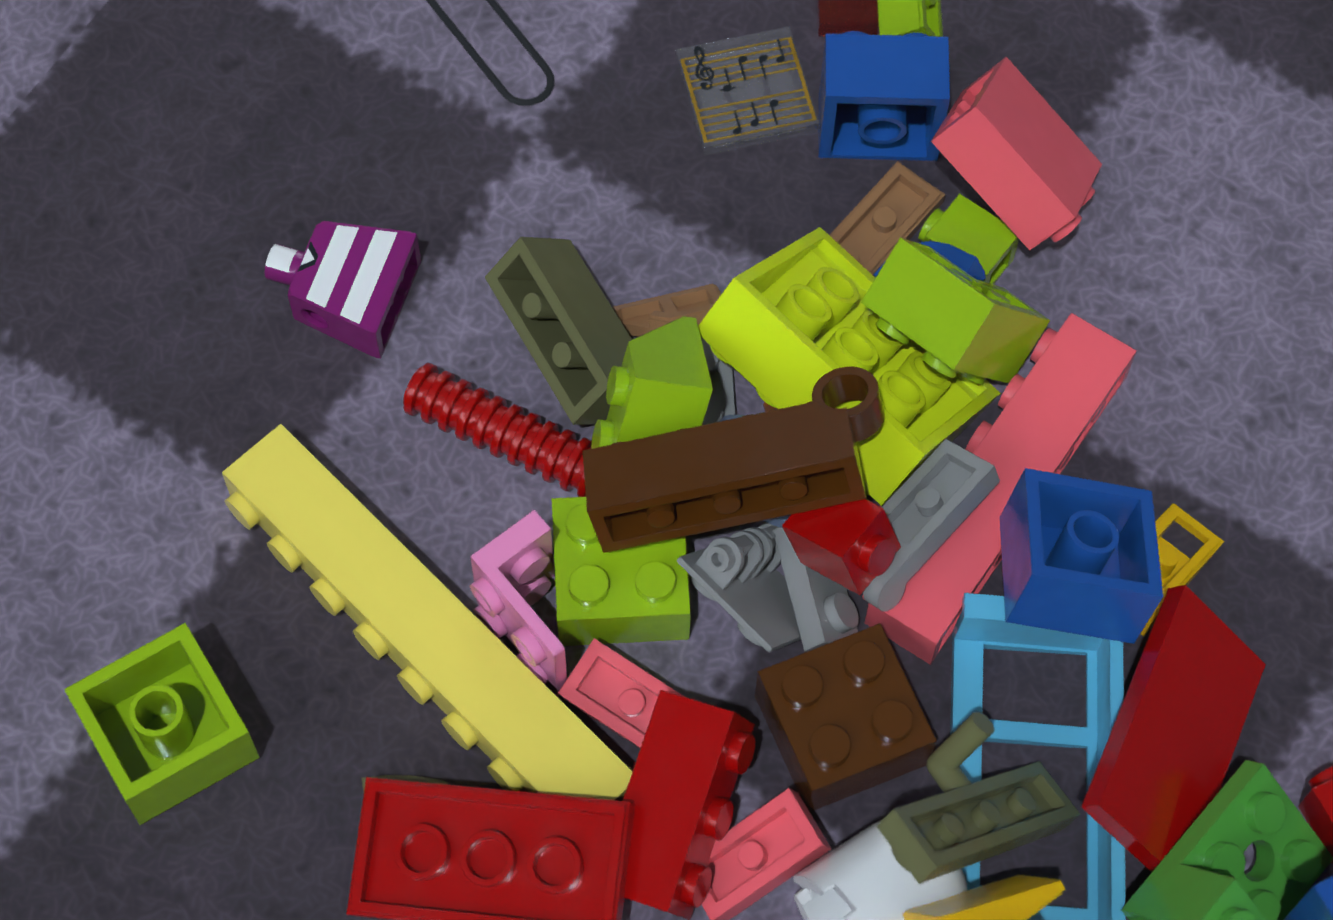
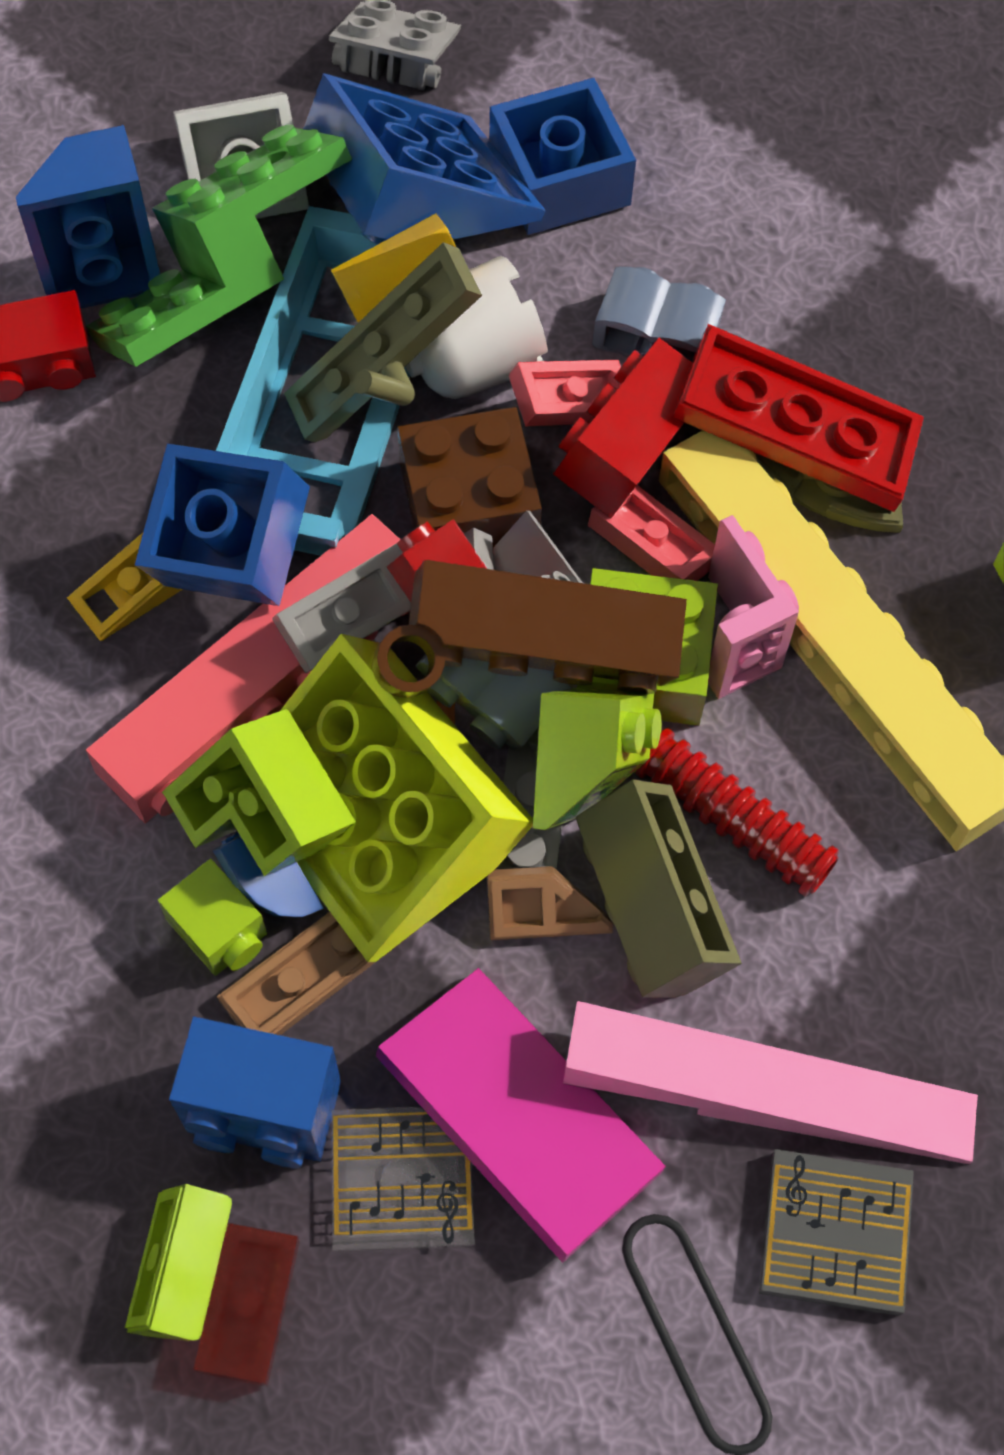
camera: 170 degrees left, 0 degrees up
(348, 281) = (889, 1001): magenta torso -> none
(377, 111) = (837, 1232): none -> dark grey tile
(457, 198) = (767, 1085): none -> bright pink slope
(661, 148) = (504, 1104): none -> dark pink tile
(1018, 155) = (133, 973): coral brick -> none
(1174, 729) = (186, 403): red tile -> none

